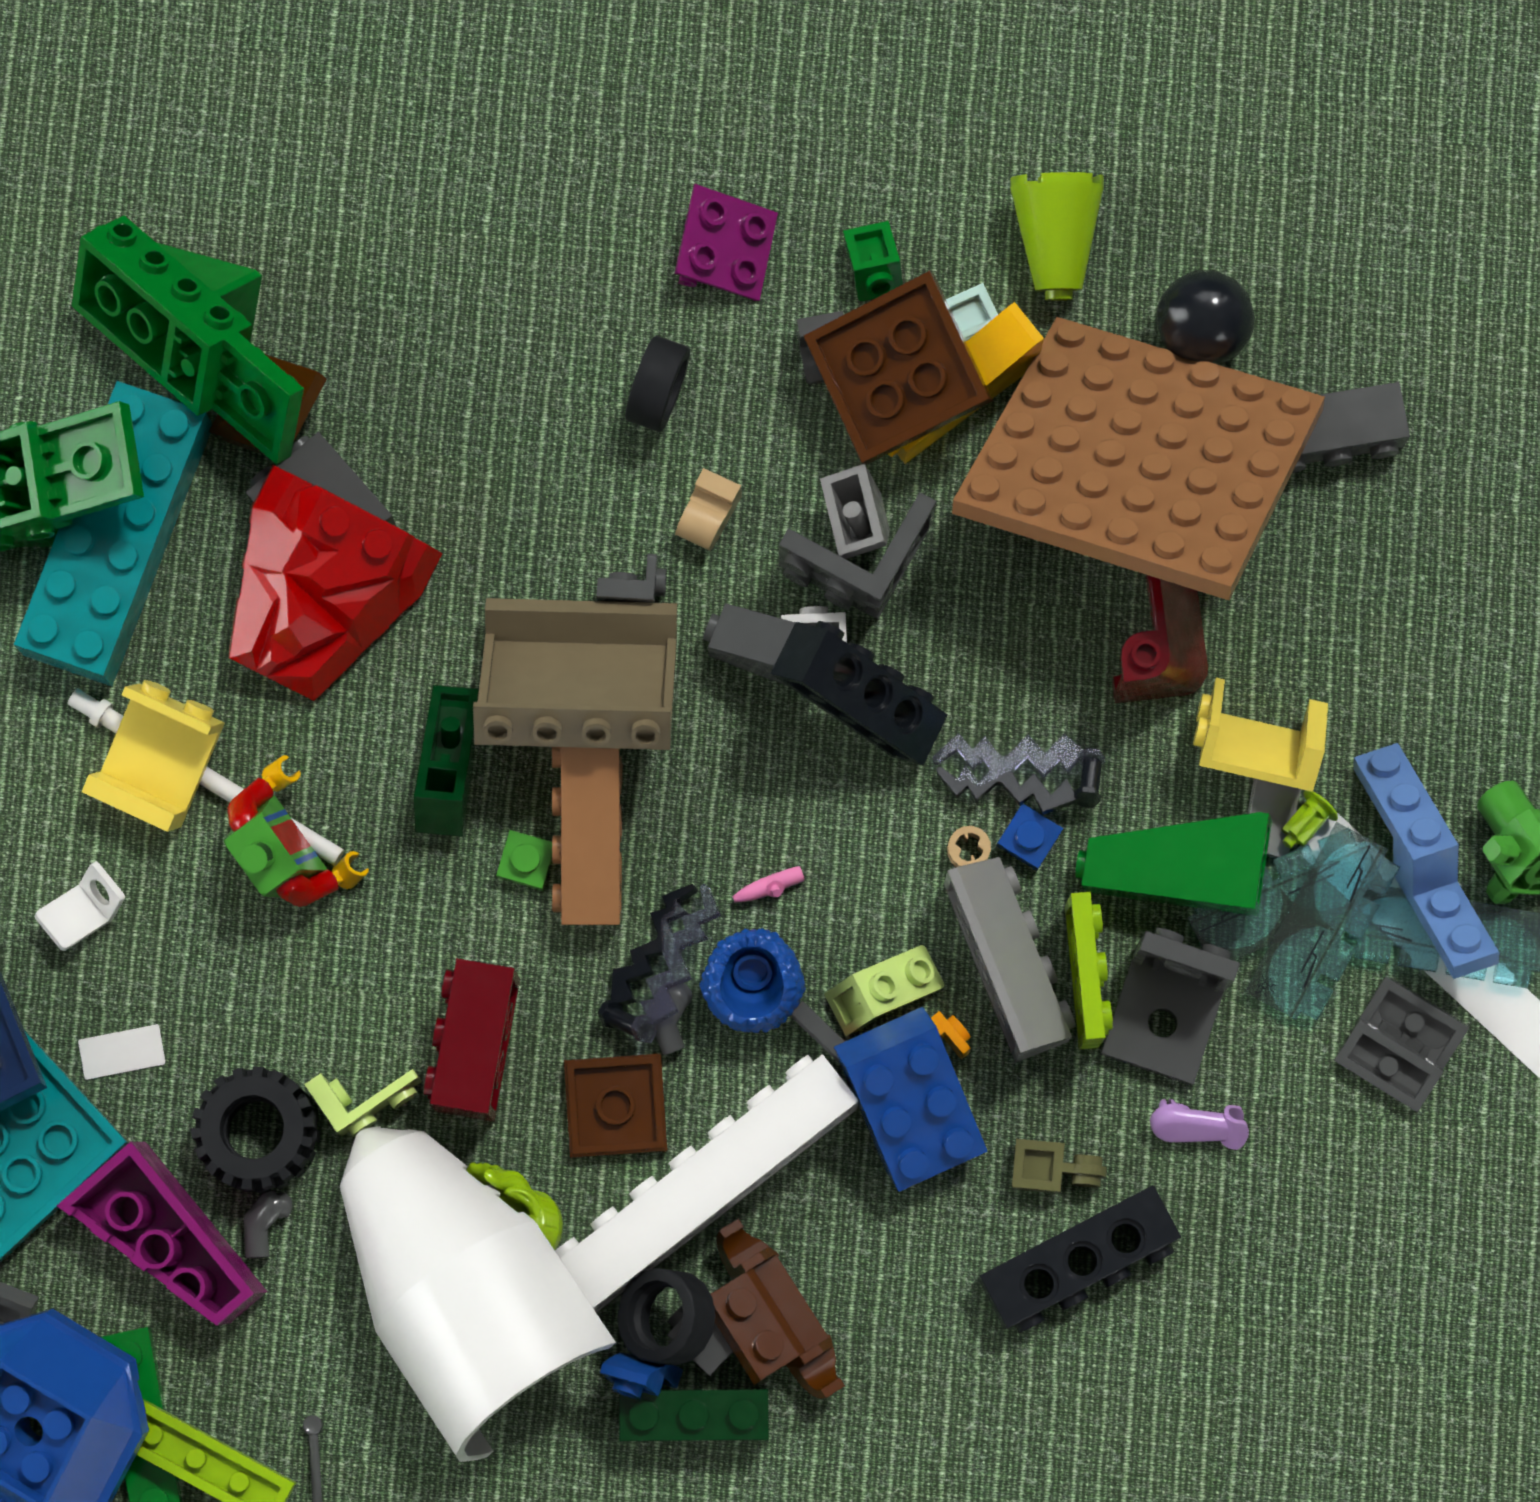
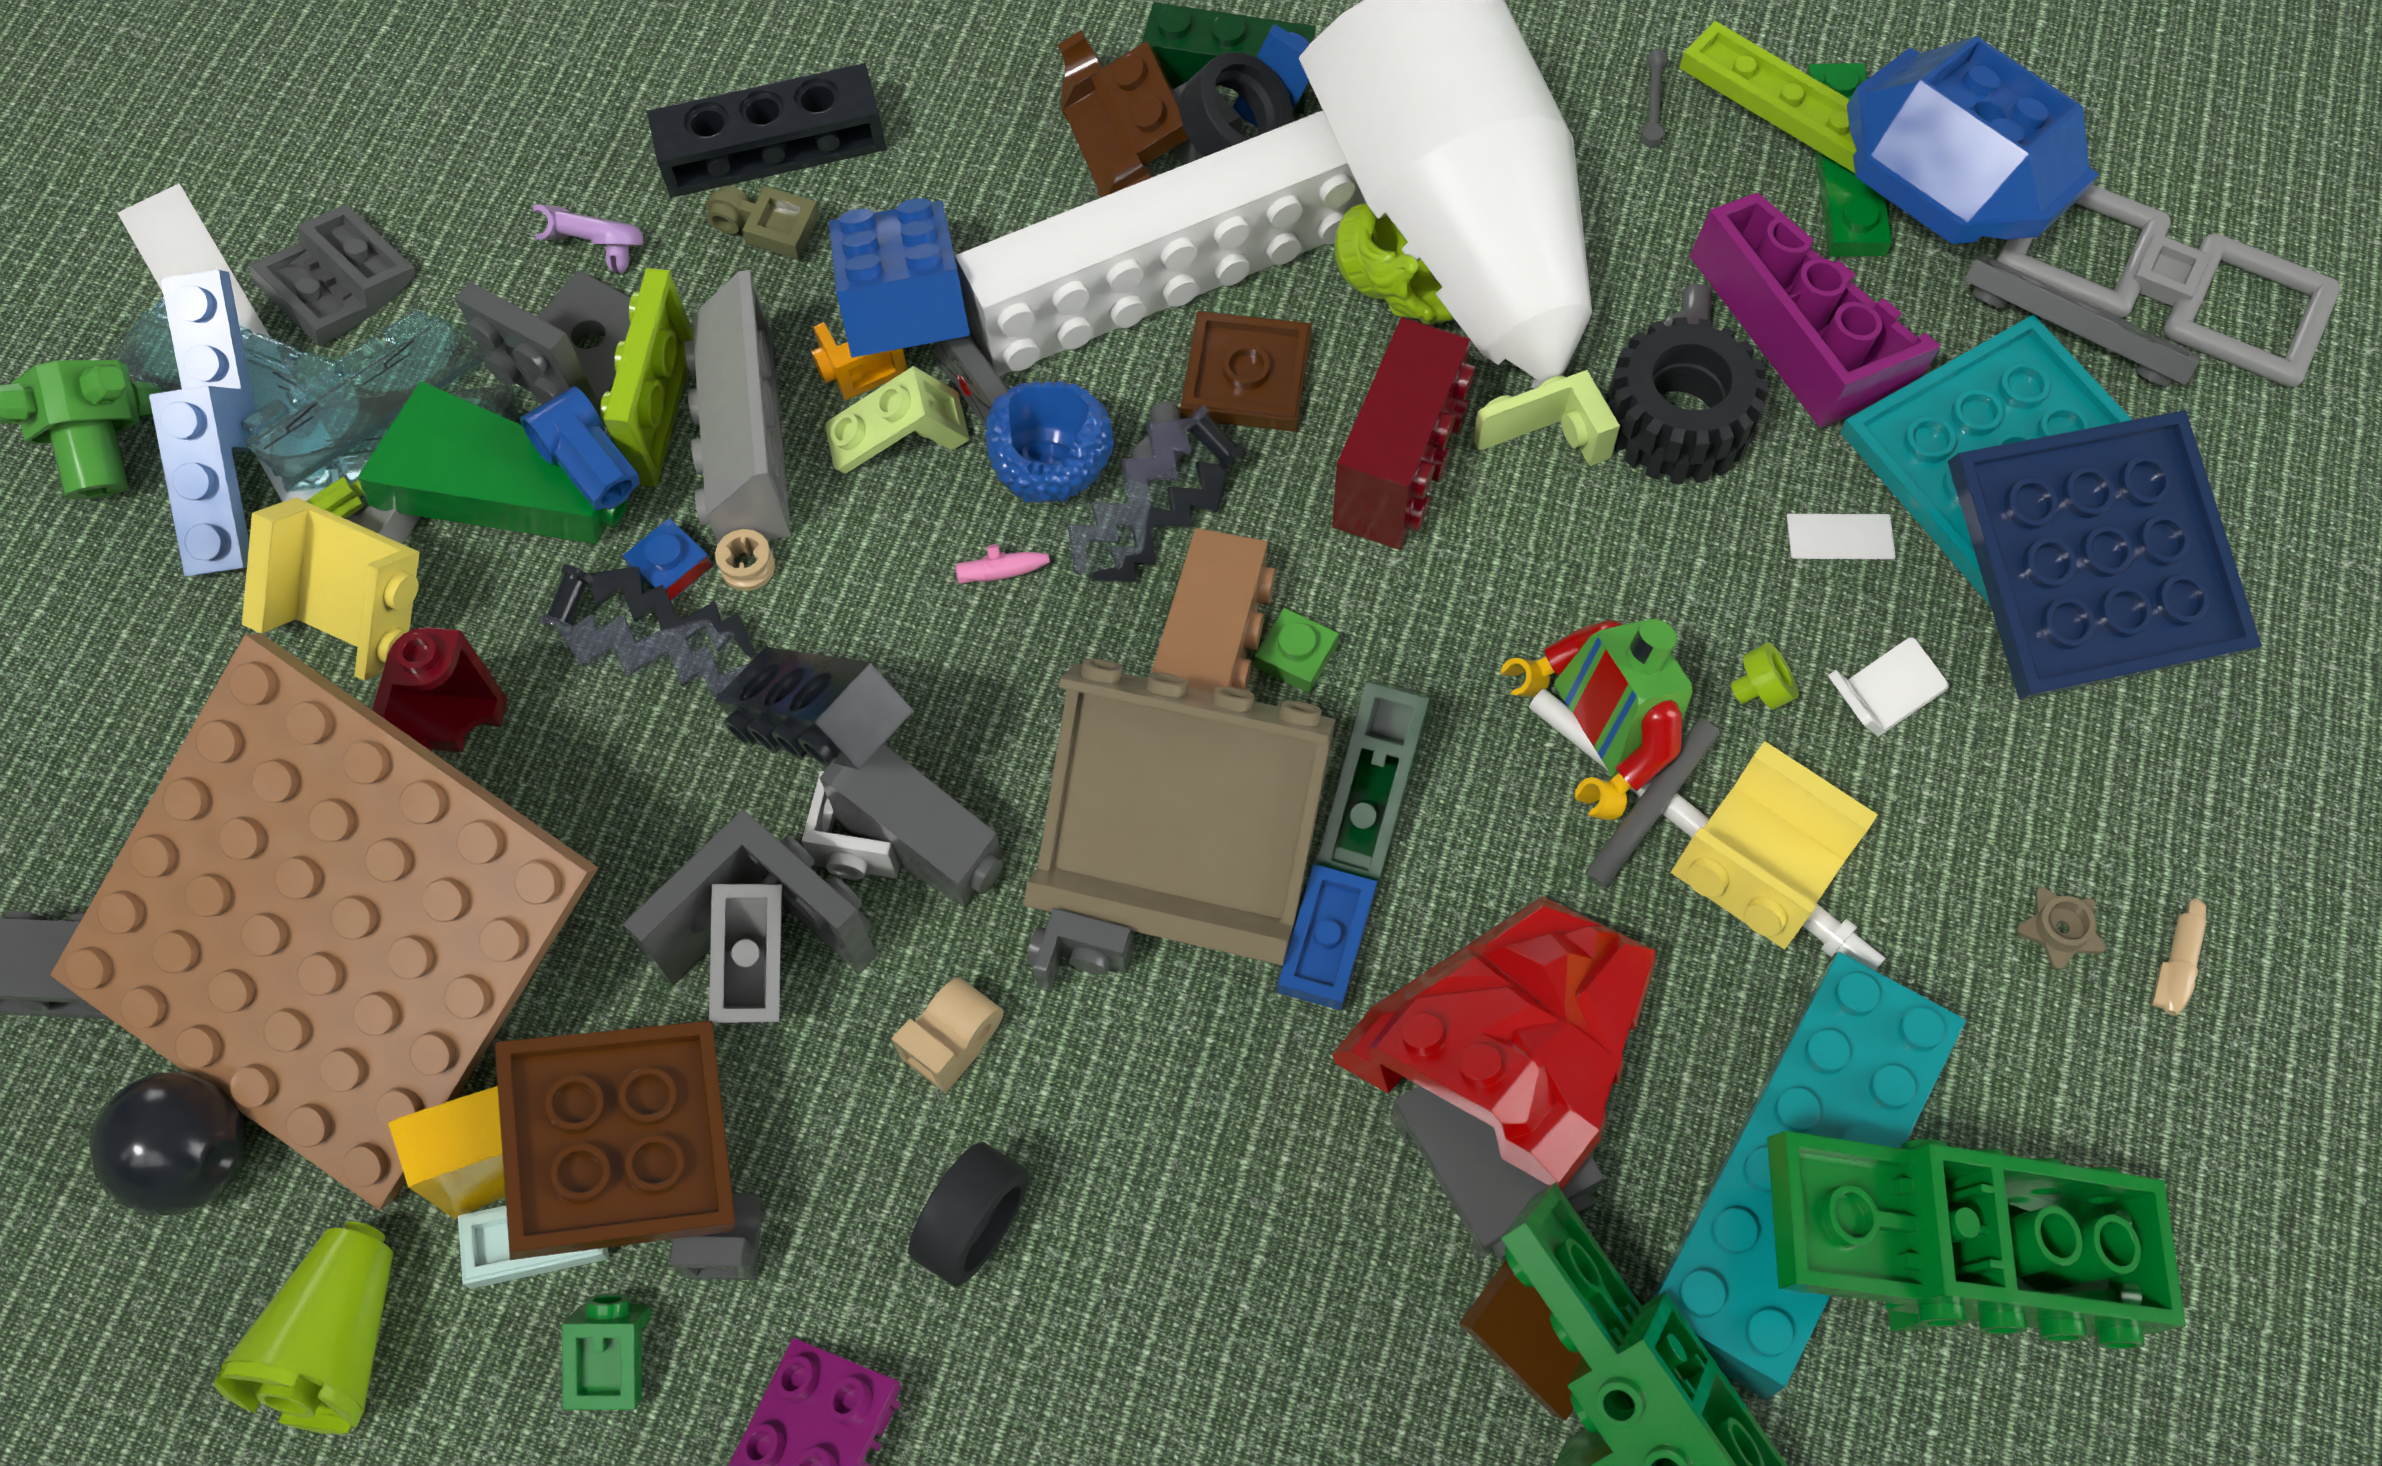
camera: 165 degrees left, 15 degrees down
(168, 901) = (1766, 678): none -> lime tile
(245, 776) = (1652, 804): none -> dark grey bar
(460, 634) = (1327, 937): none -> blue plate
(1118, 885) = (574, 437): none -> blue piece

